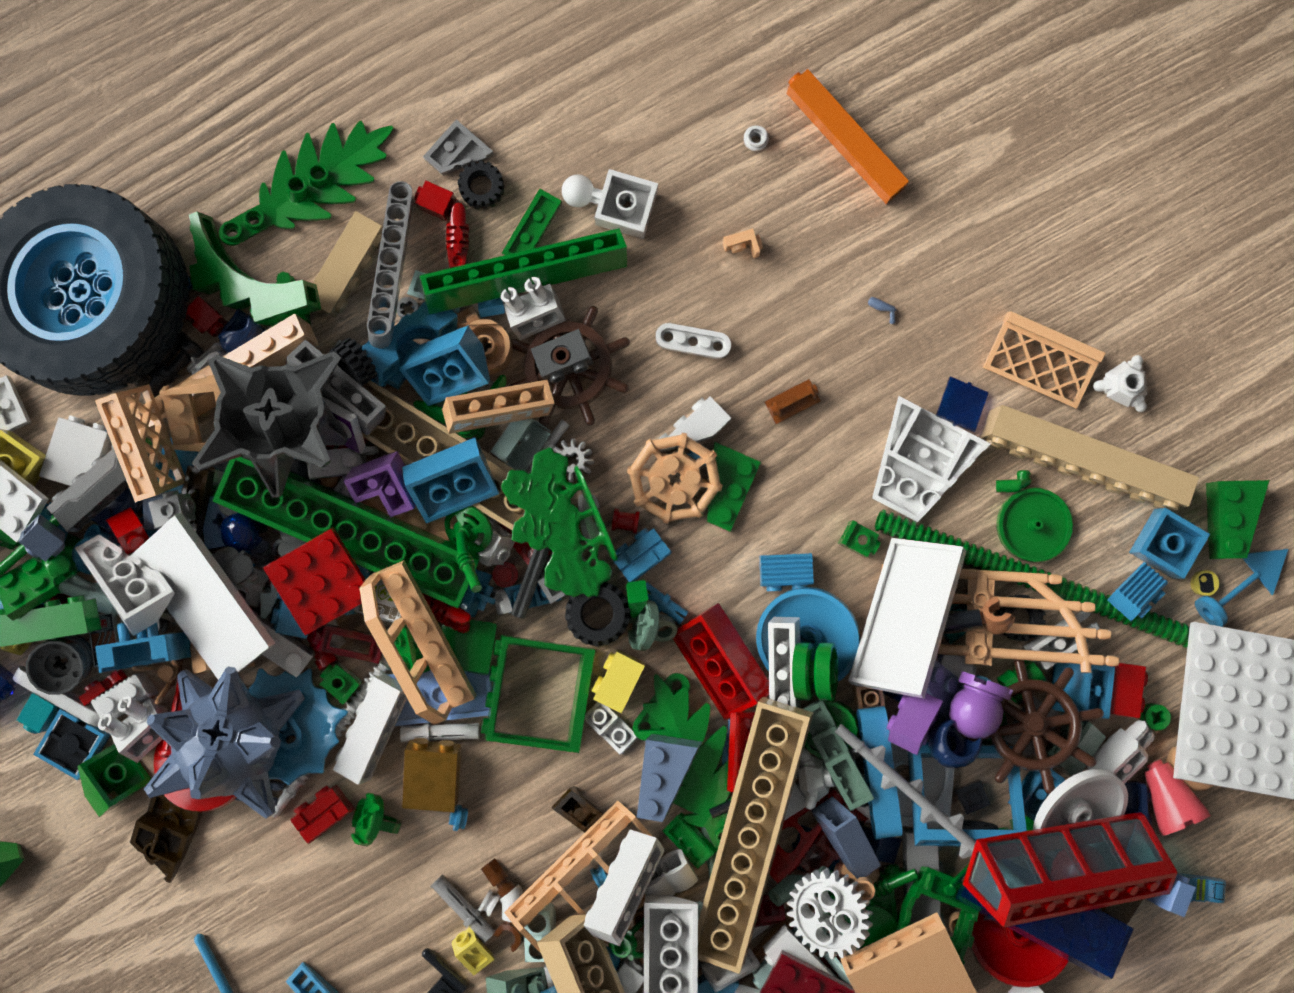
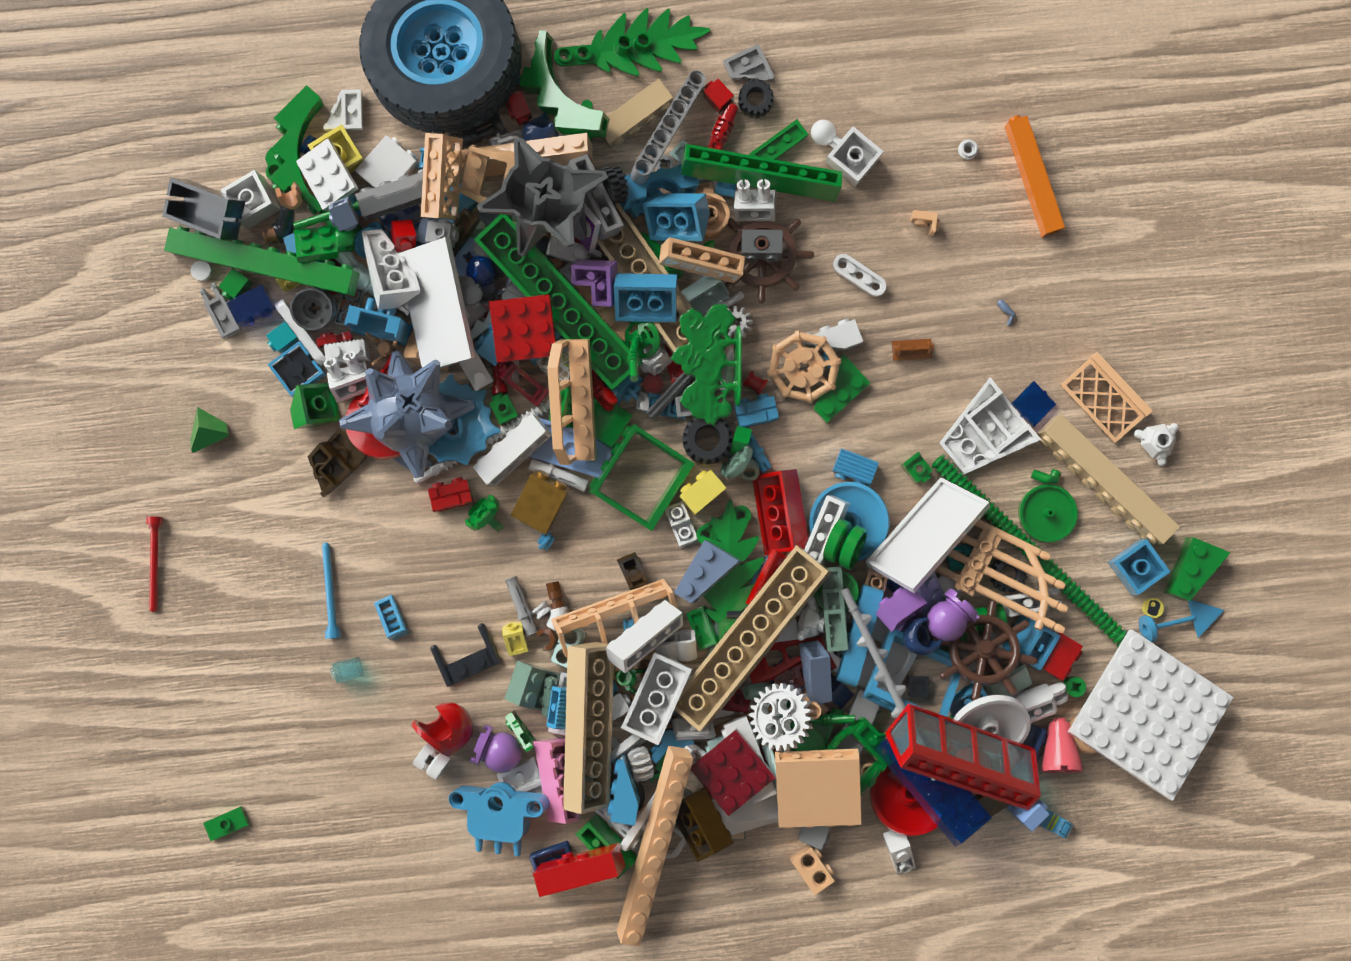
camera: 25 degrees right, 0 degrees up
(974, 619) = (973, 556): piece -> none
(1138, 591) = (1101, 591): dark azure brick -> none

